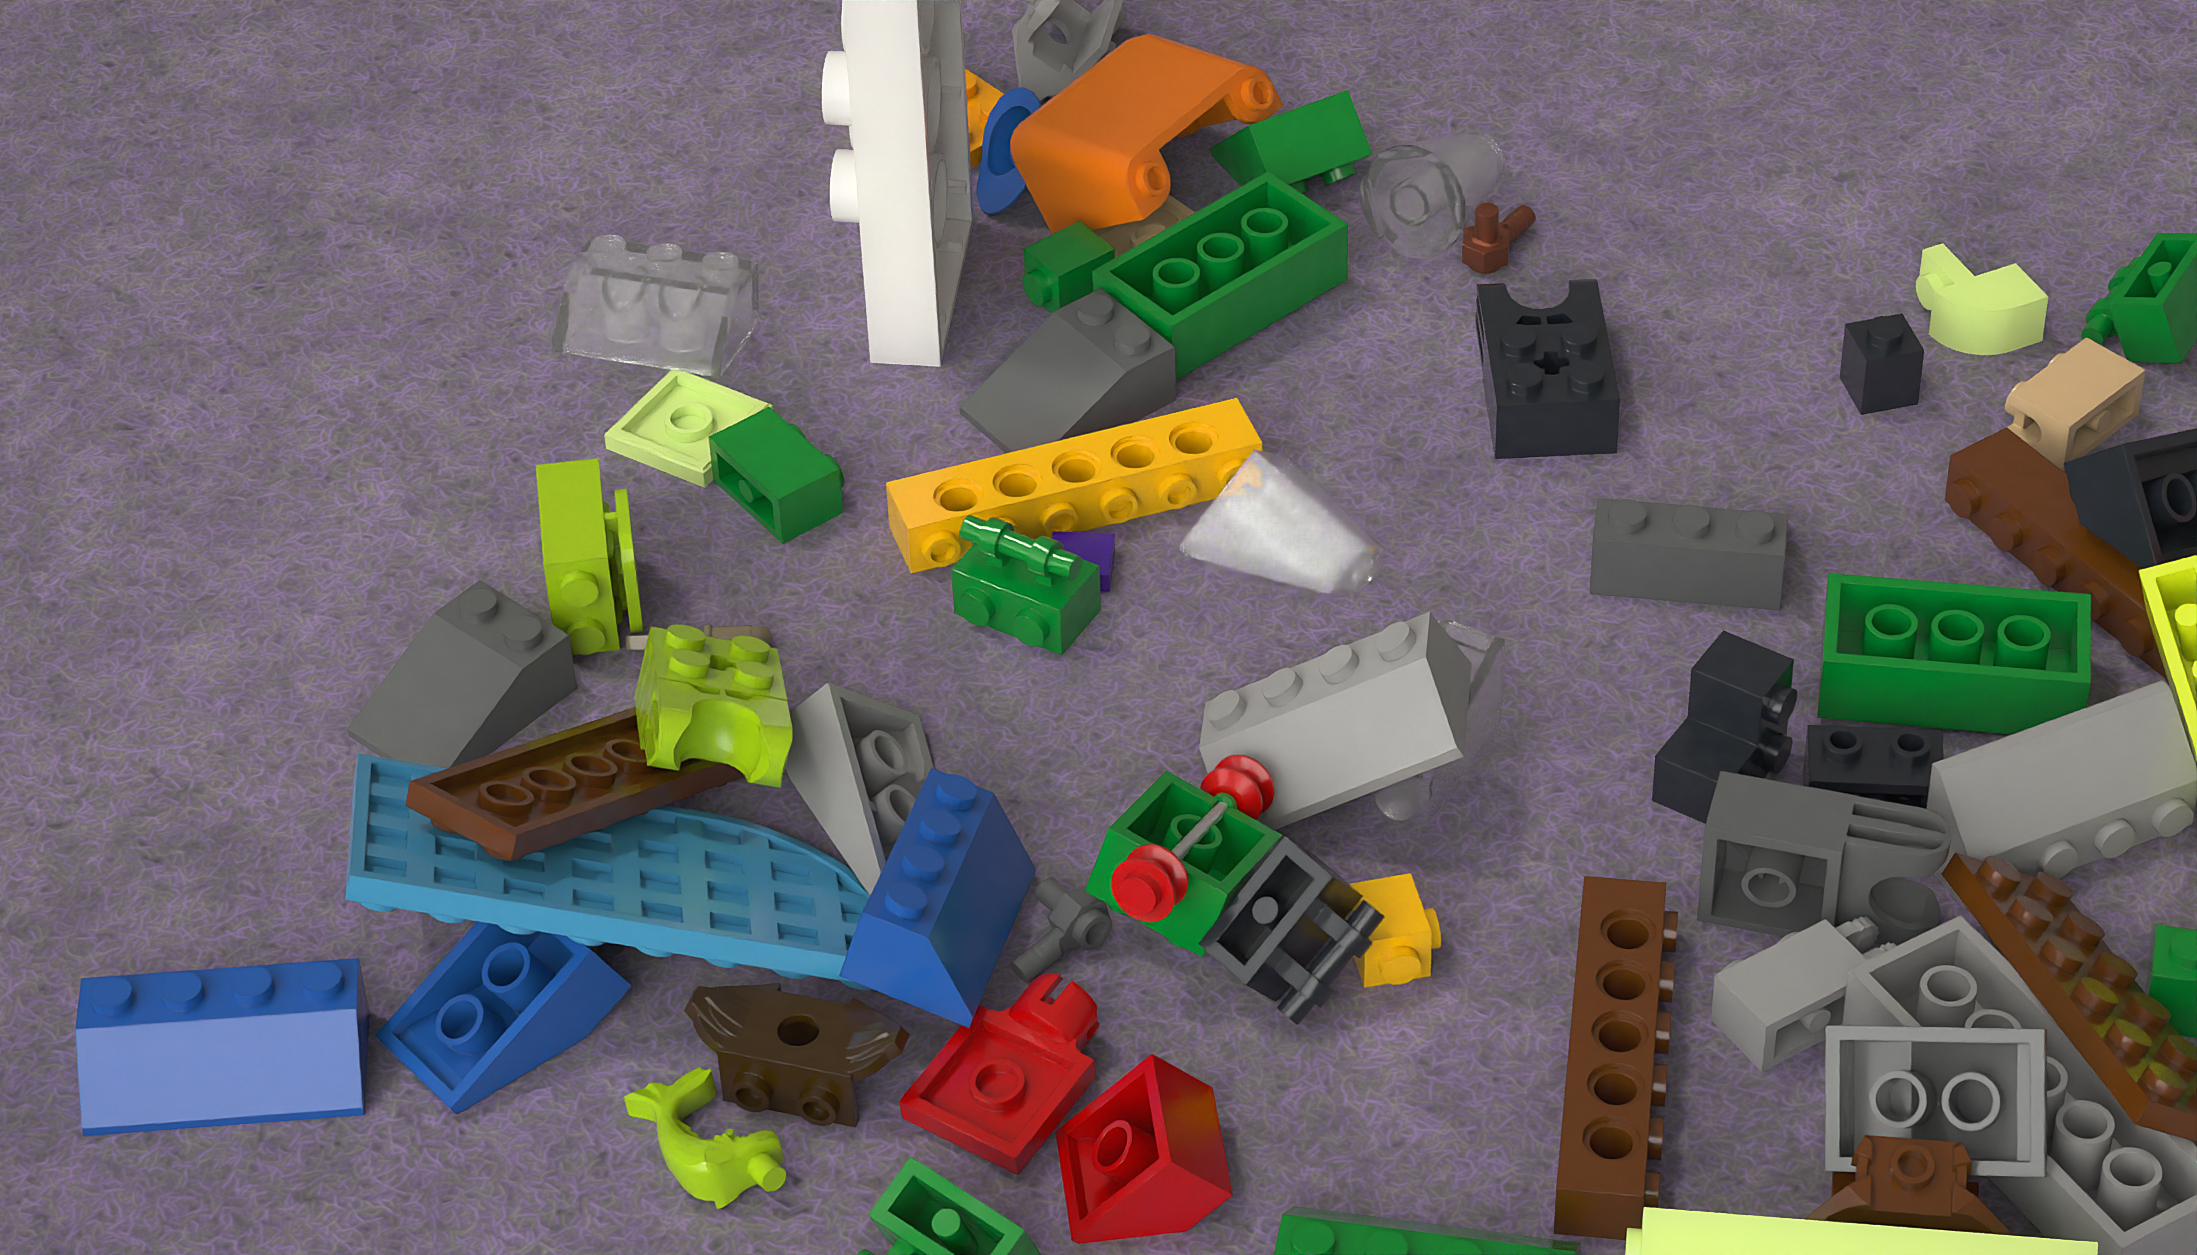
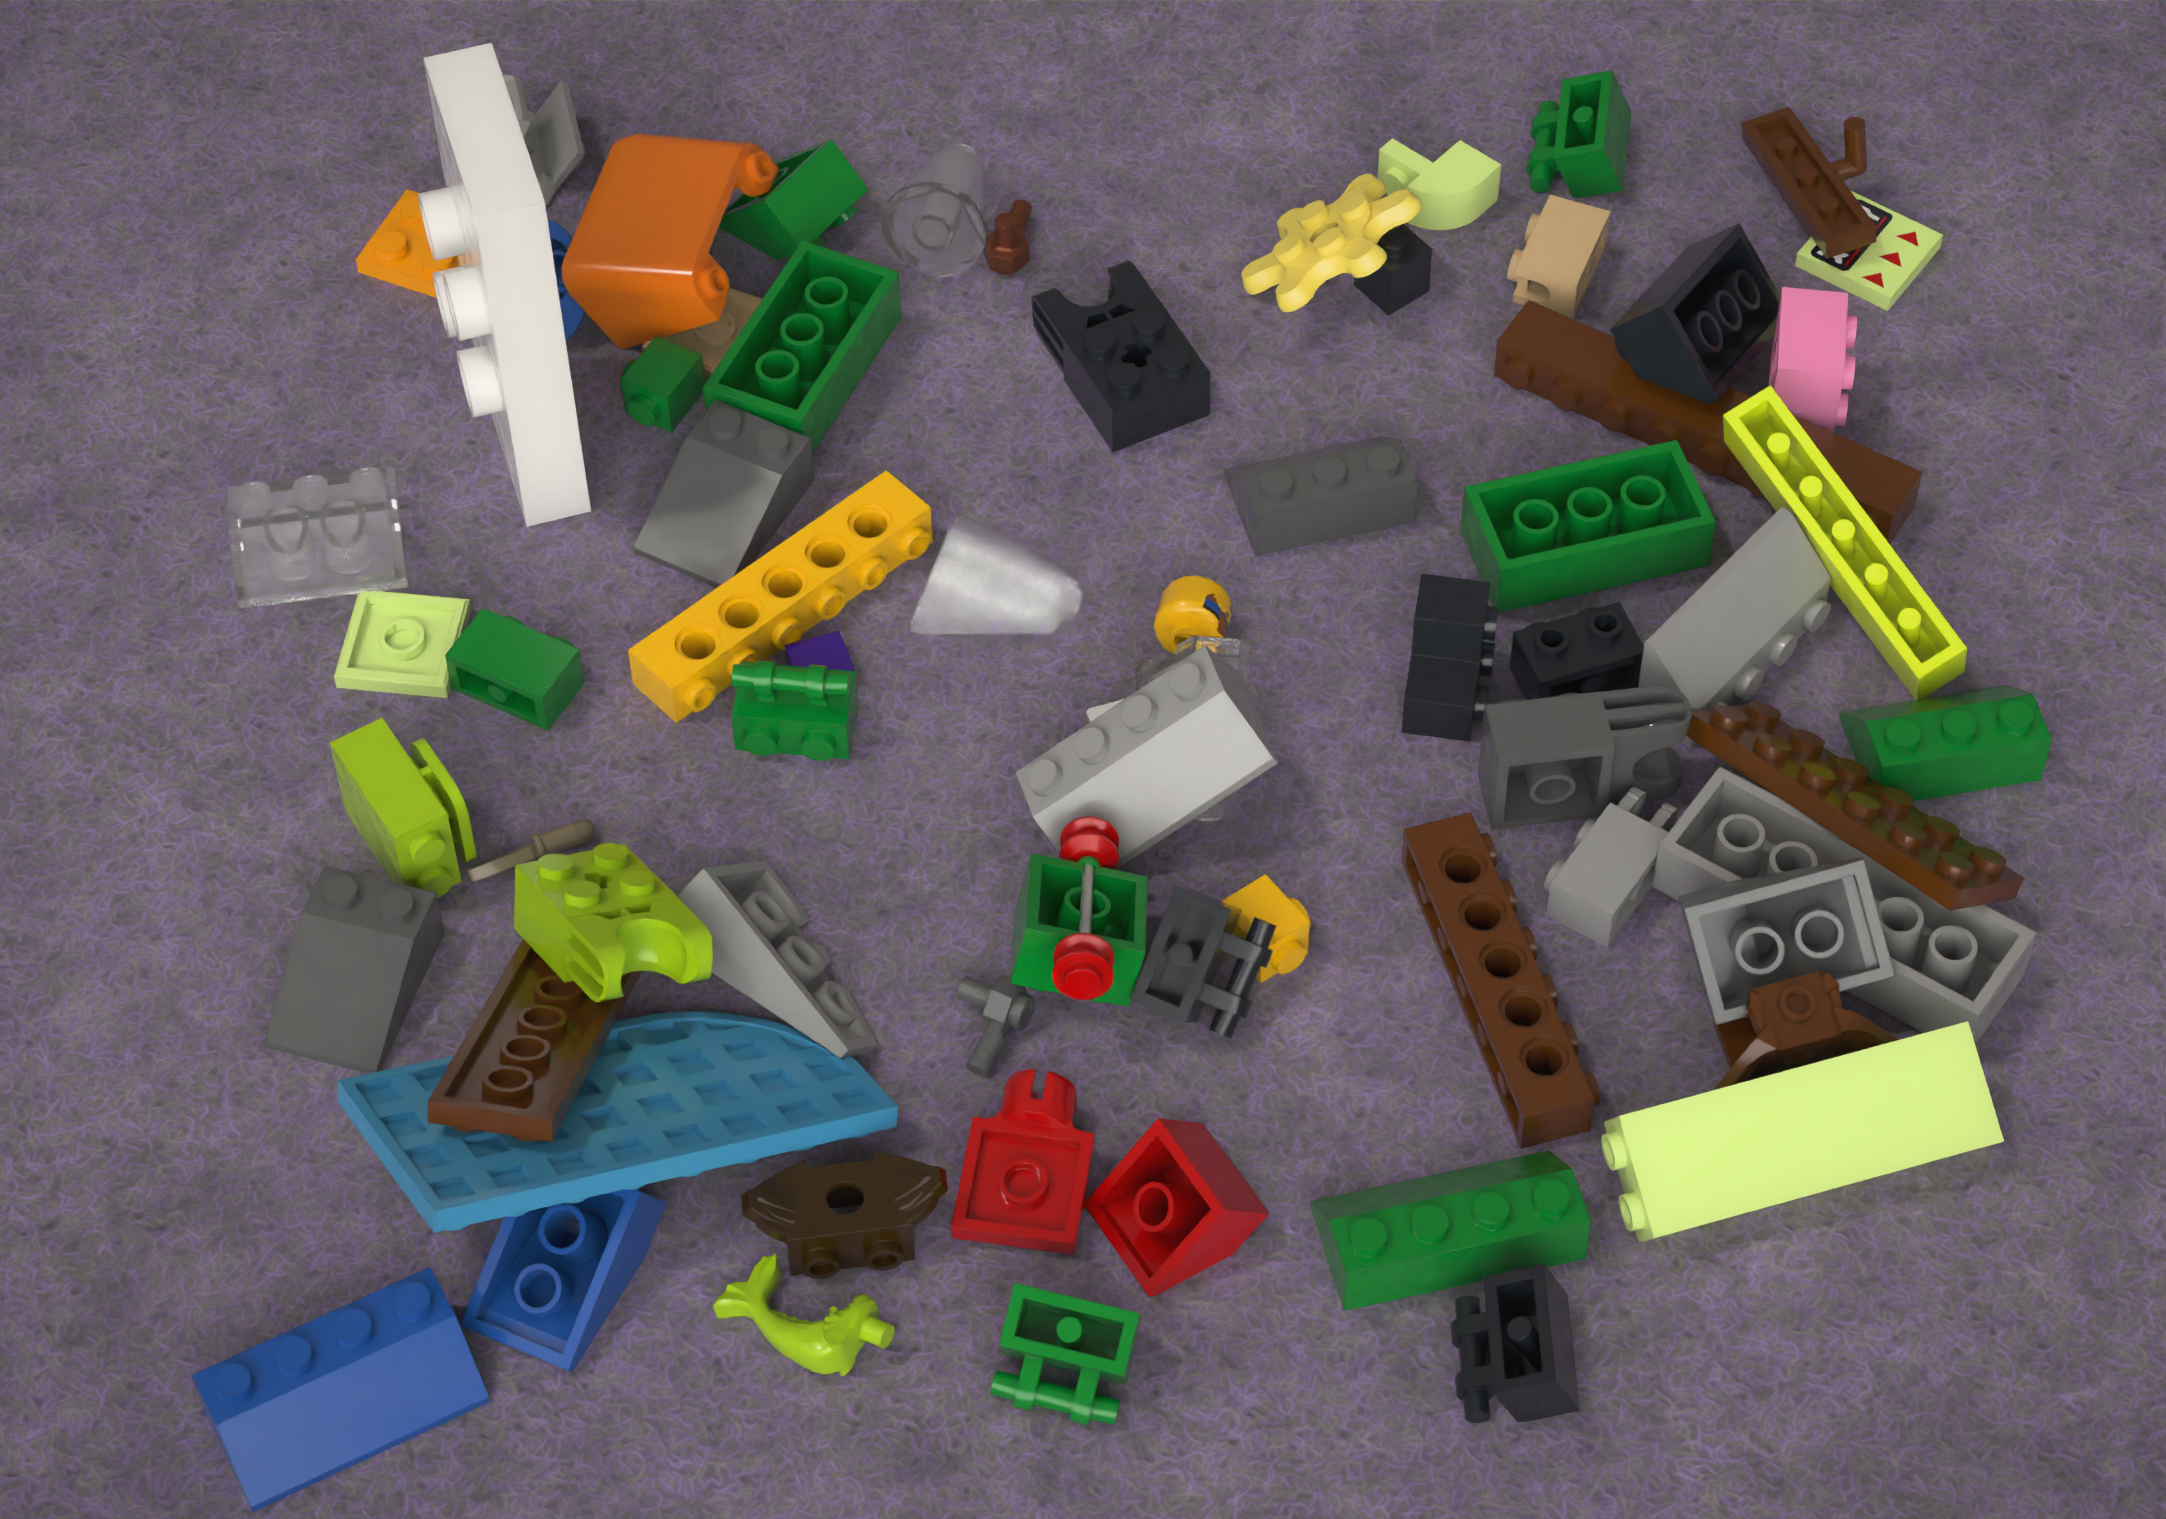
camera: 25 degrees left, 10 degrees up
(942, 901) = (896, 1036): blue slope -> none
(1491, 608) = (1191, 609): none -> yellow head
(1818, 315) = (1330, 241): none -> light yellow plate

